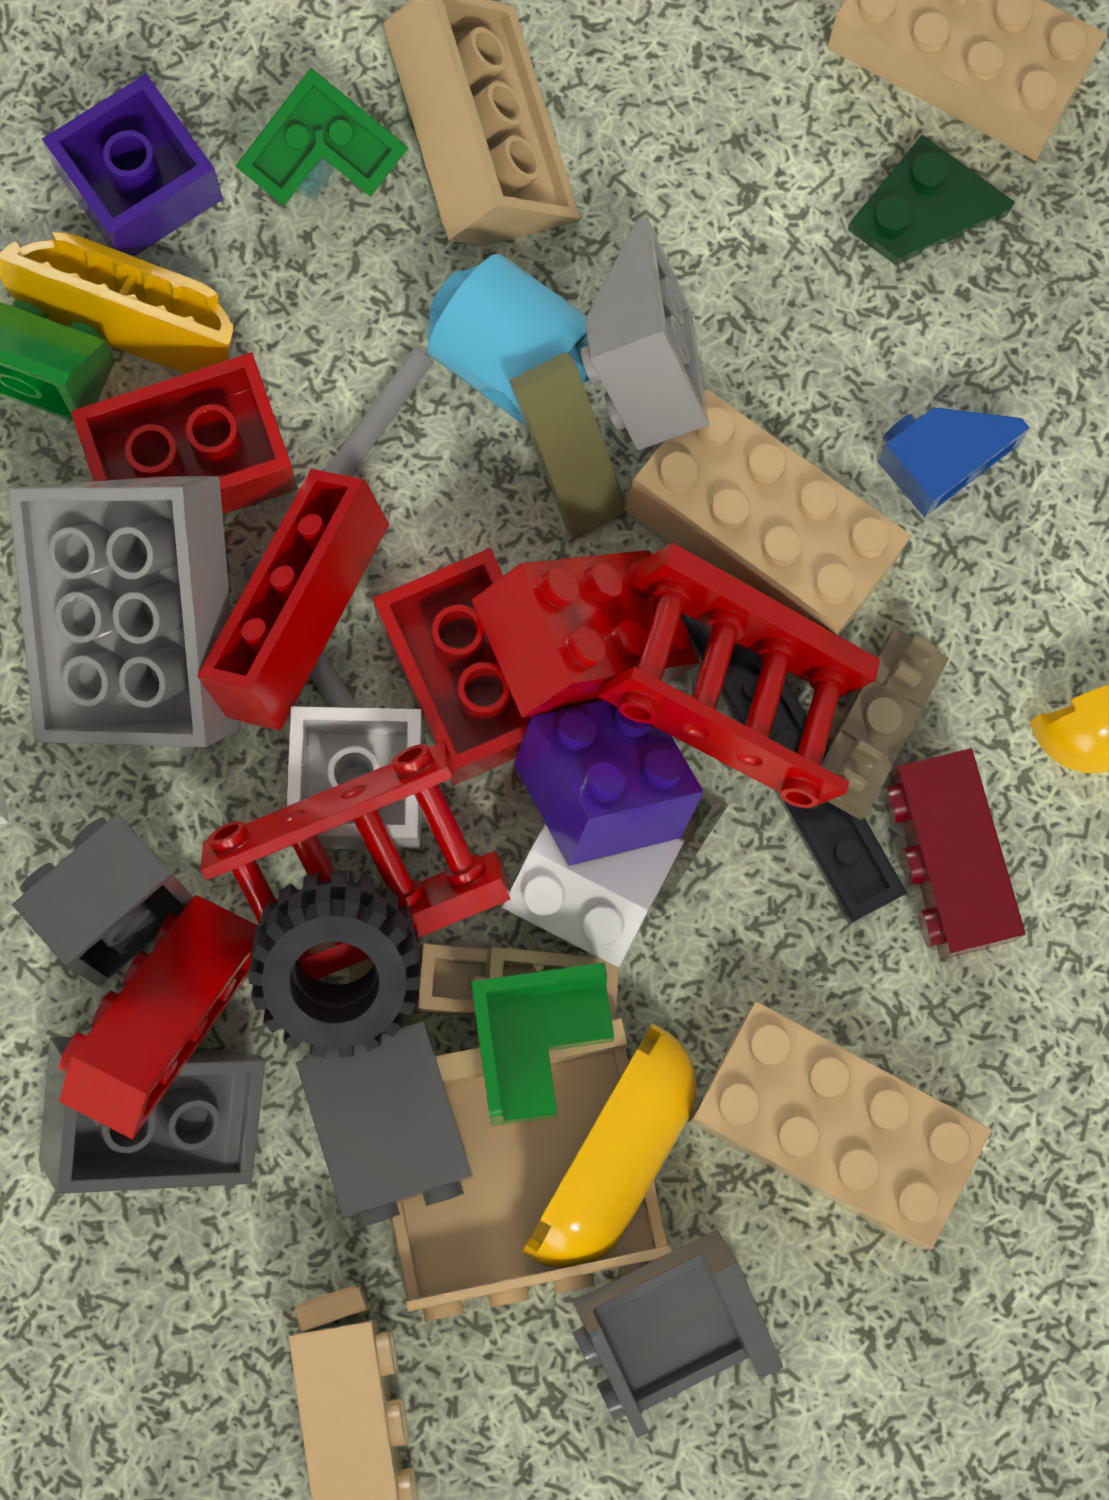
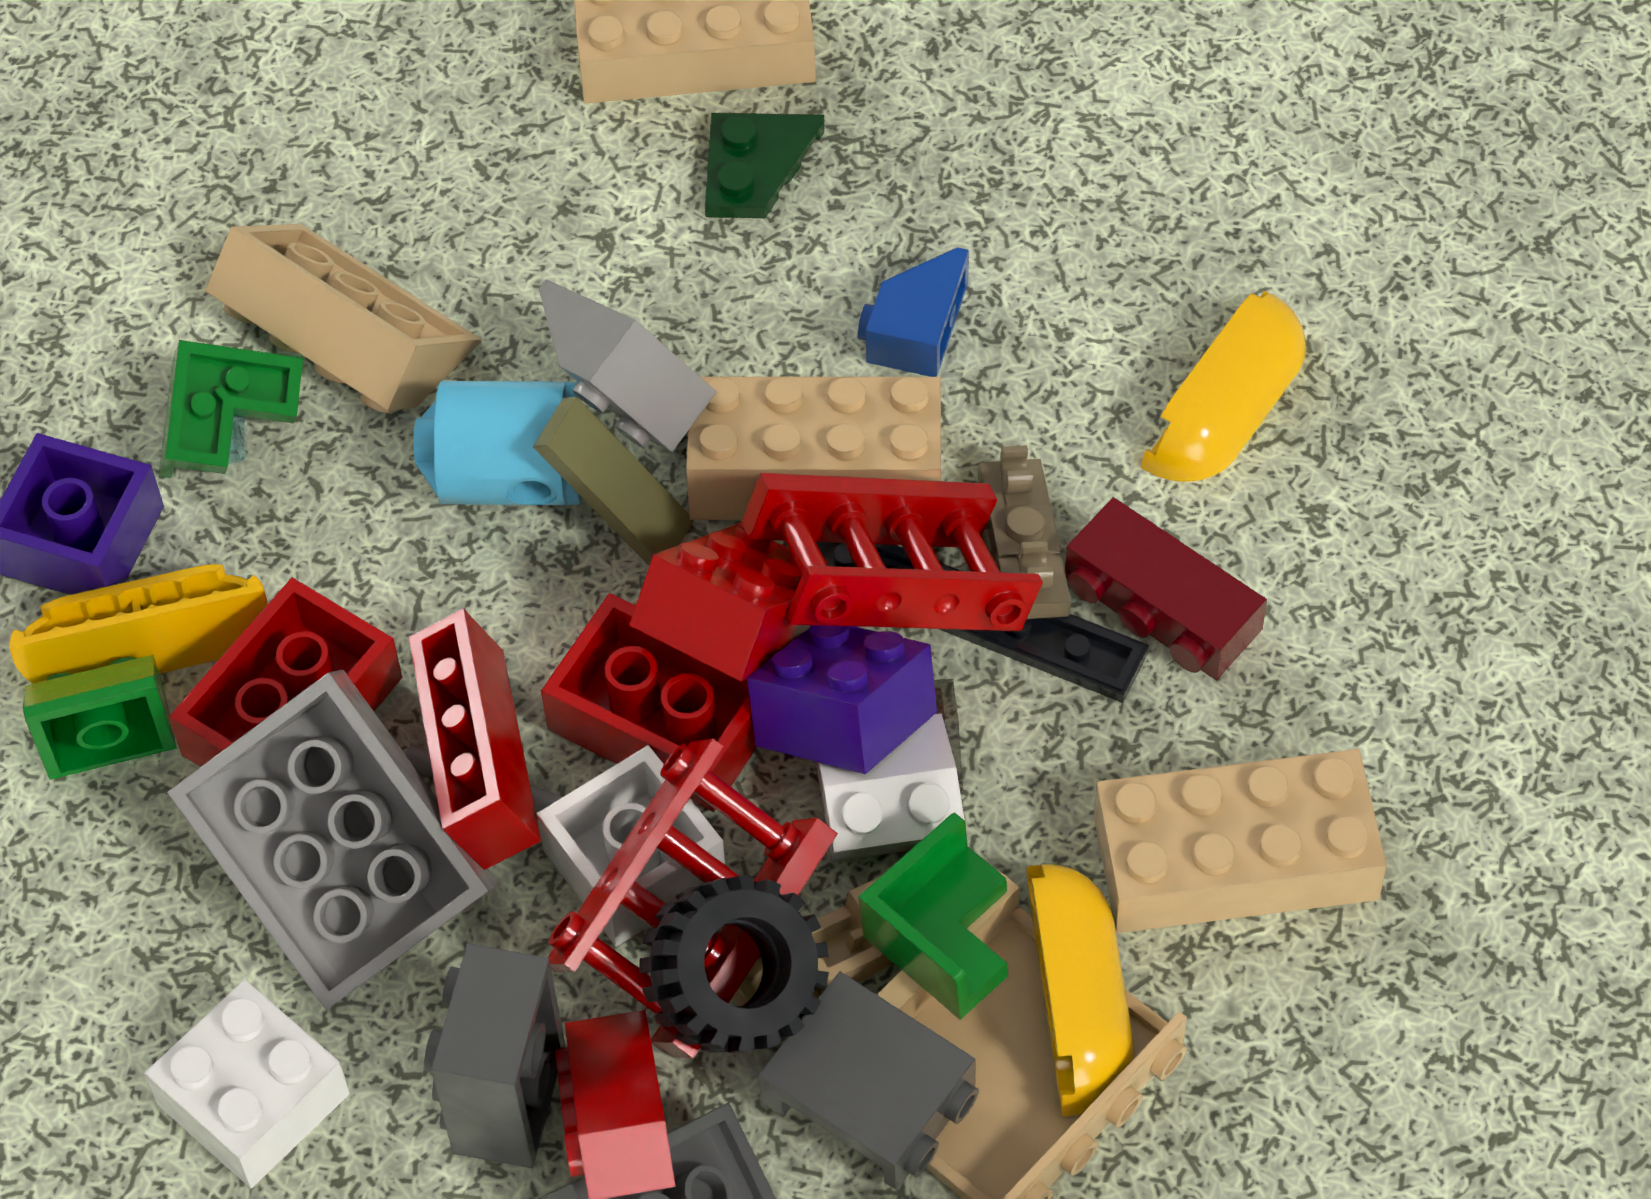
camera: 30 degrees left, 20 degrees down
(380, 414) = (428, 570): light grey bar -> none
(672, 1328) = (1235, 1072): dark grey panel -> none

